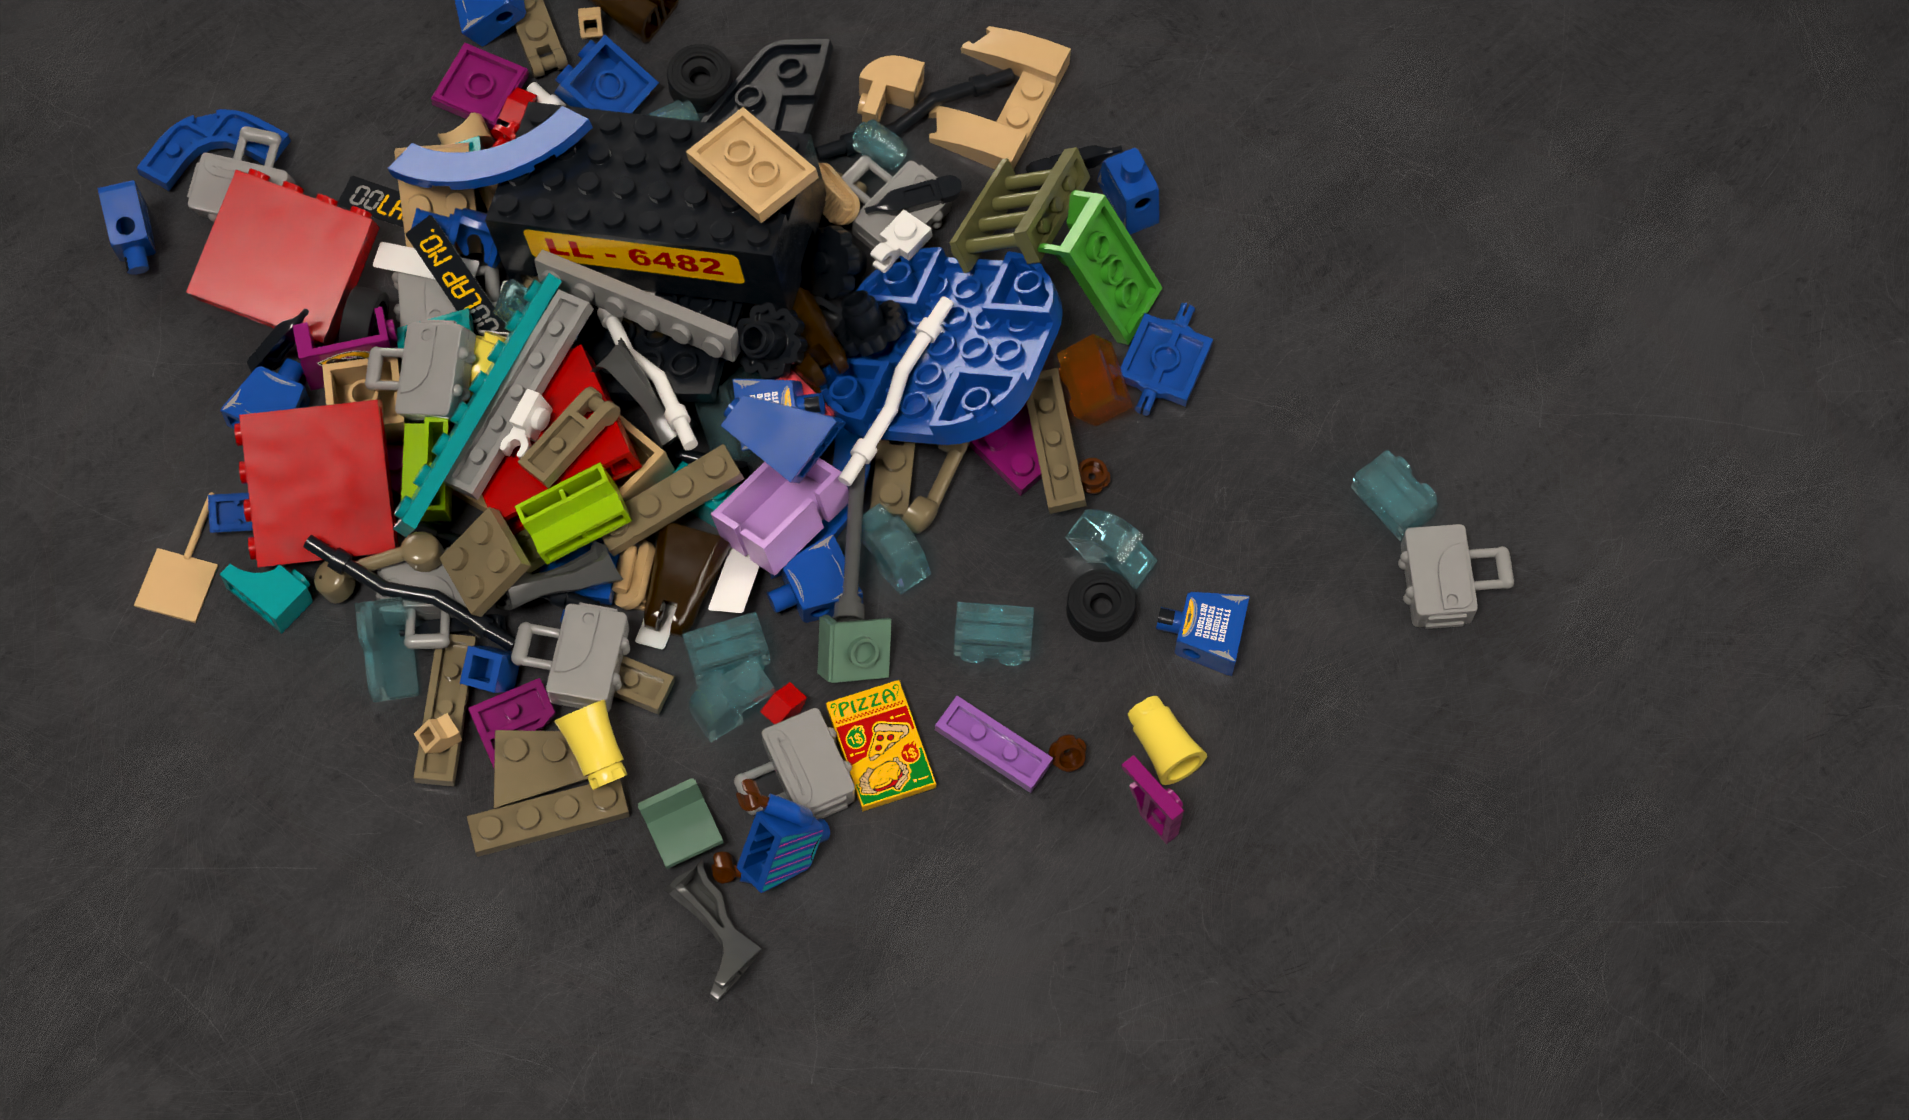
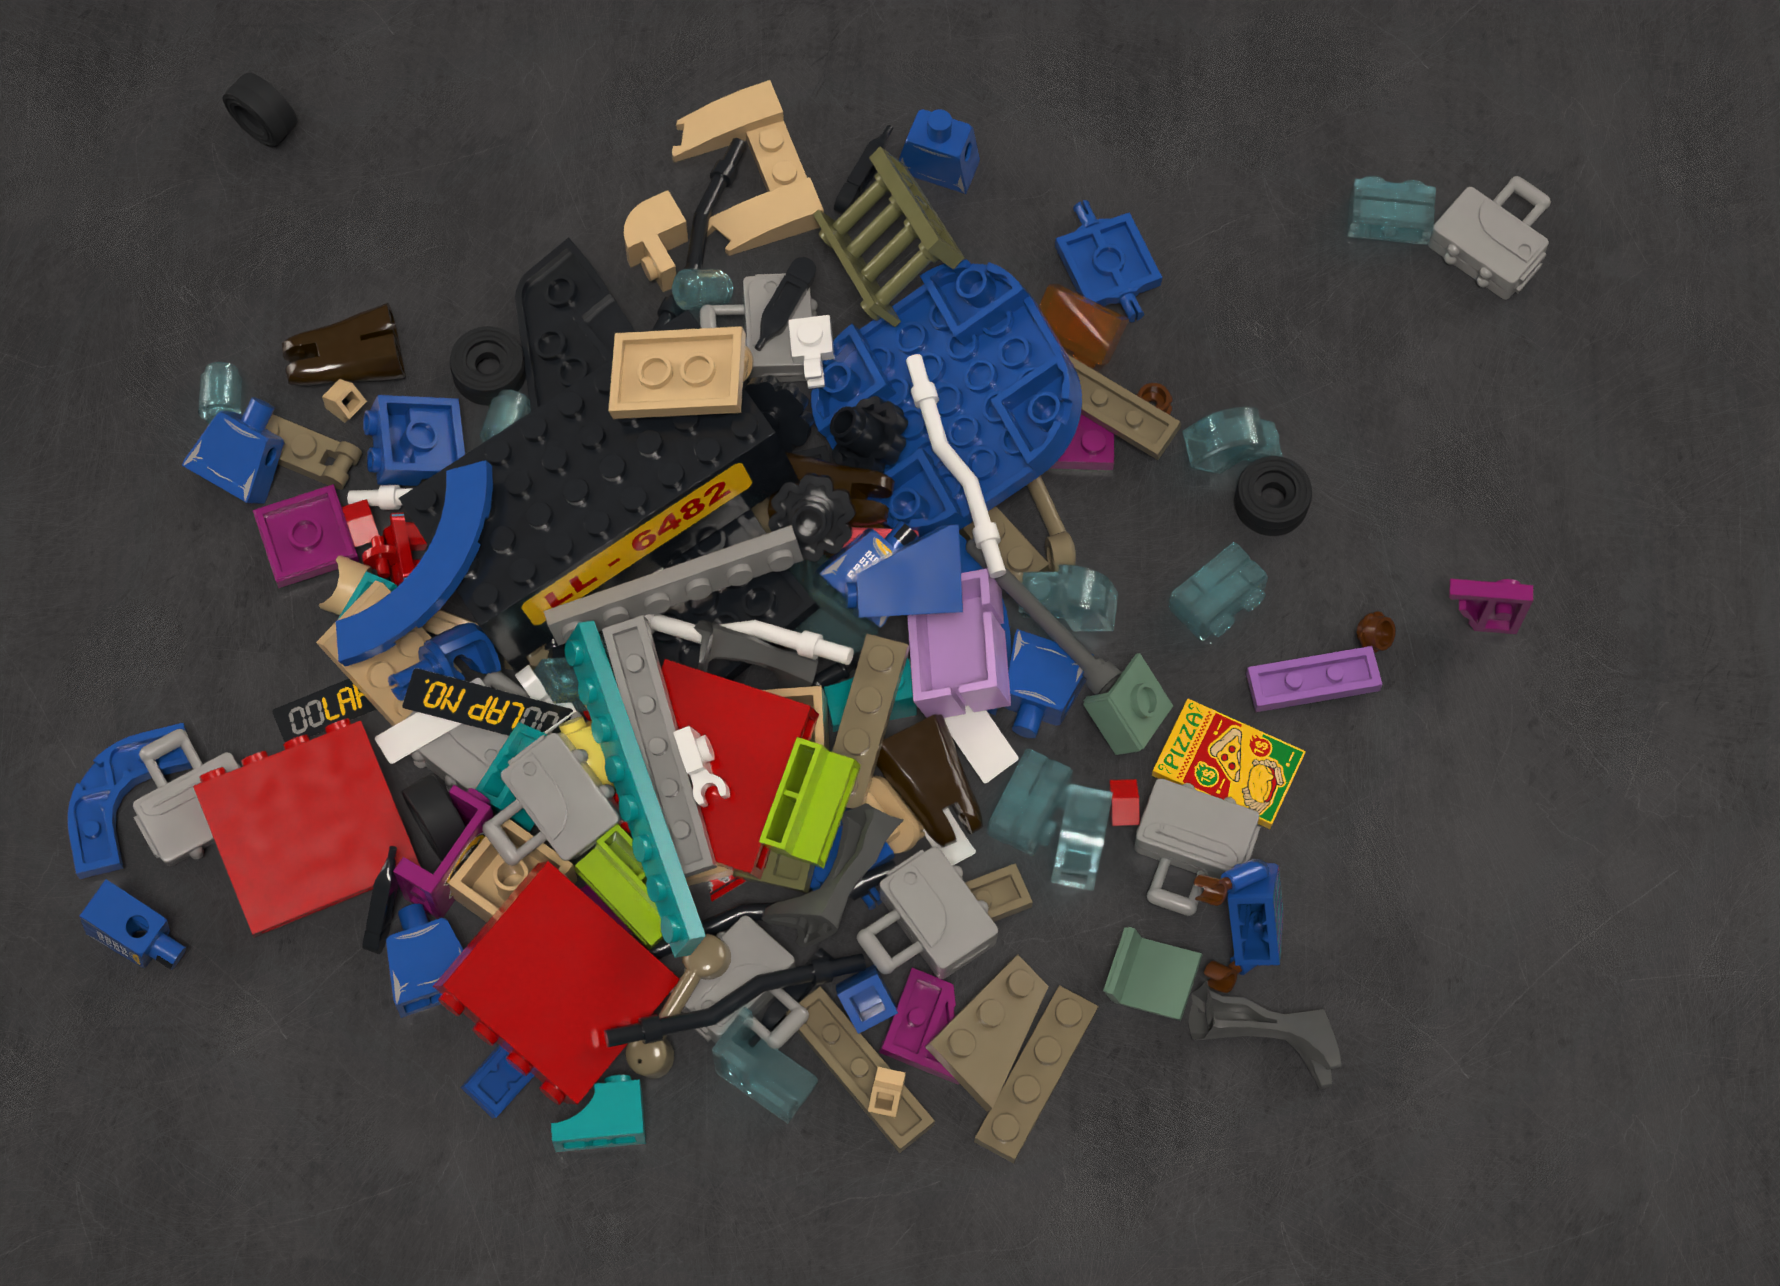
camera: 45 degrees left, 0 degrees up
(178, 582) = (508, 1187): tan piece -> none
(485, 562) = (778, 912): dark tan plate -> none
(568, 436) = (747, 742): dark tan plate -> none
(593, 743) = (1024, 974): light yellow plant -> none
(1106, 264) = (997, 214): bright green plate -> none
(1165, 741) = (1435, 551): light yellow plant -> none
(1207, 628) = (1373, 438): blue torso -> none

